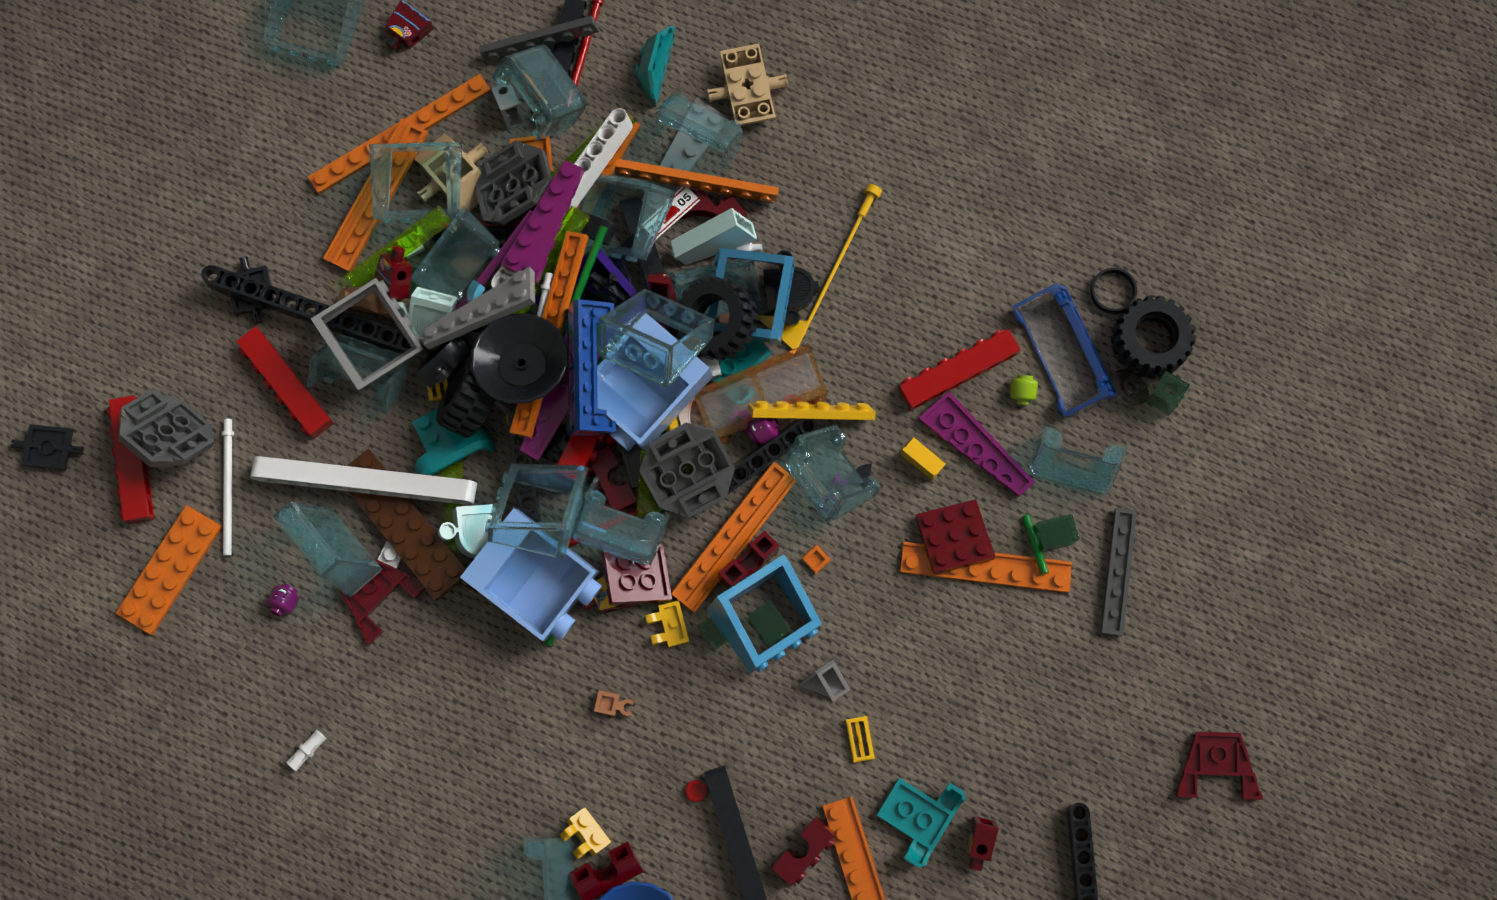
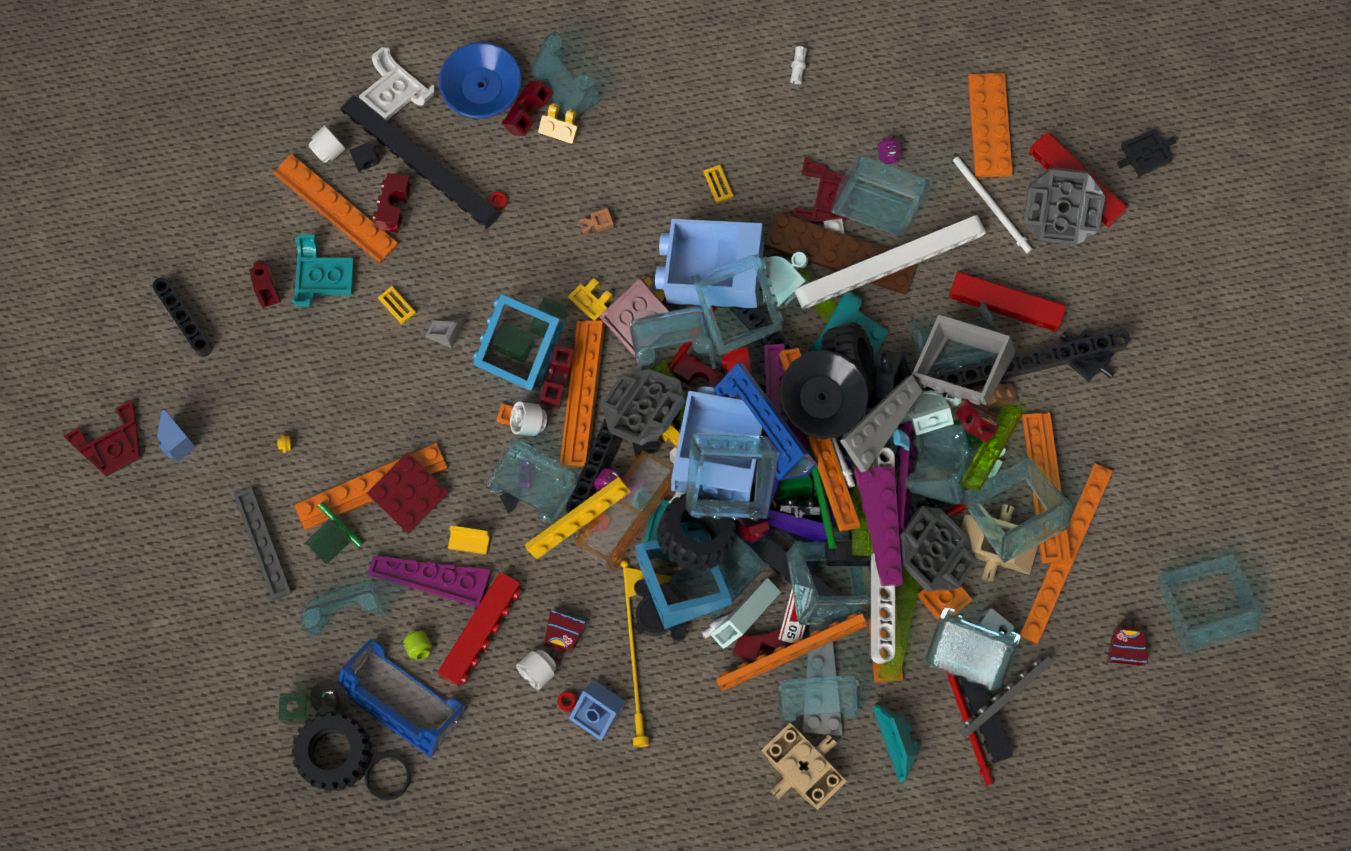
camera: 150 degrees right, 5 degrees down
(477, 674) = (723, 197): none -> yellow tile
(801, 537) = (527, 419): none -> white piece
(886, 321) = (563, 633): none -> dark red torso
(894, 238) = (597, 710): none -> medium blue slope
(916, 257) = (562, 697): none -> red plate
(927, 303) = (537, 668): none -> white piece
(1047, 659) = (283, 443): none -> yellow plate
(1155, 726) = (173, 440): none -> medium blue slope

